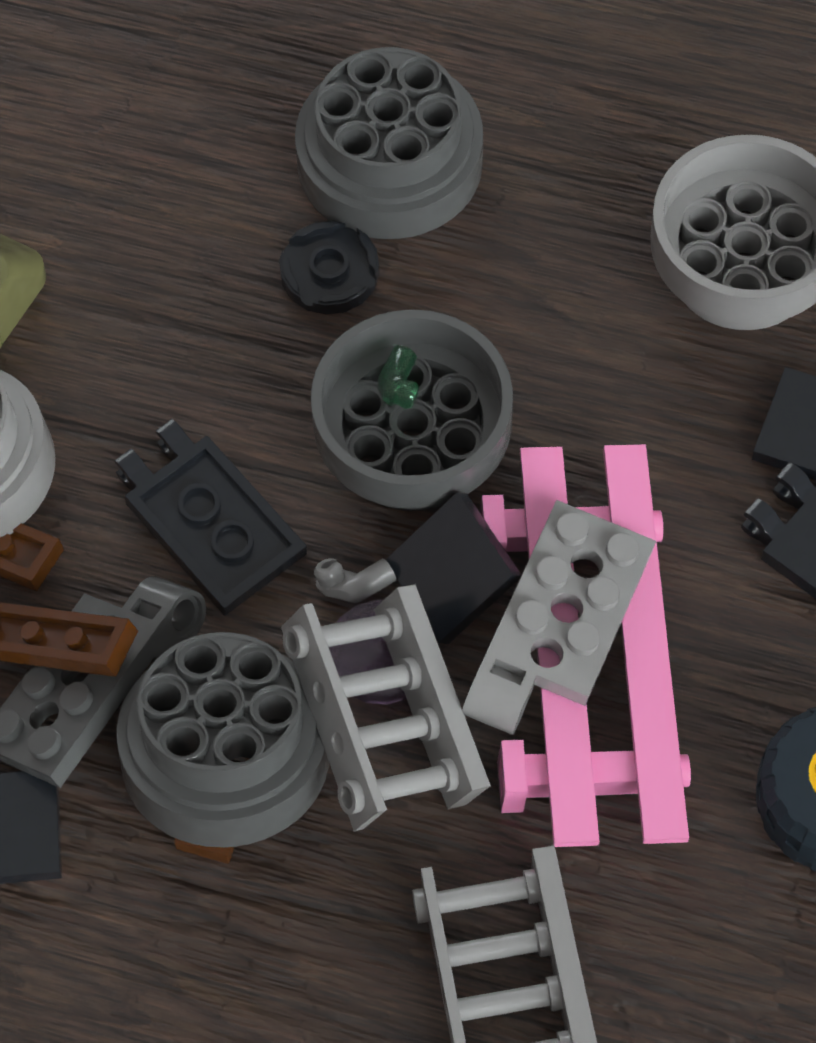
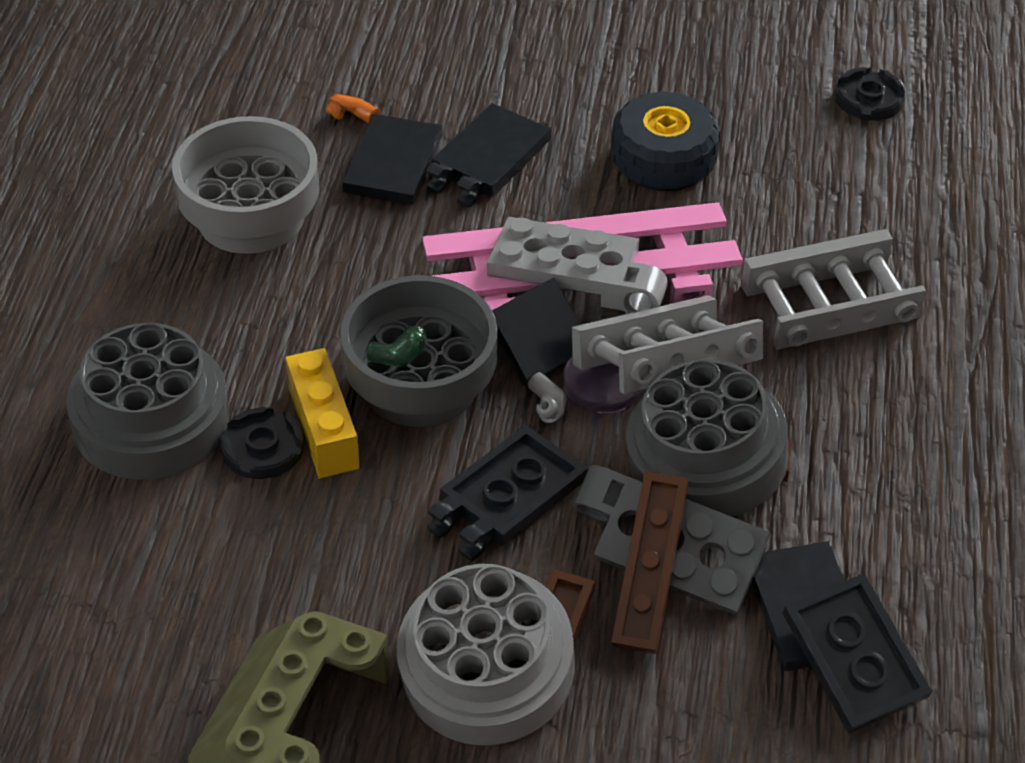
camera: 100 degrees left, 15 degrees down
(313, 318) = (322, 413): none -> yellow brick

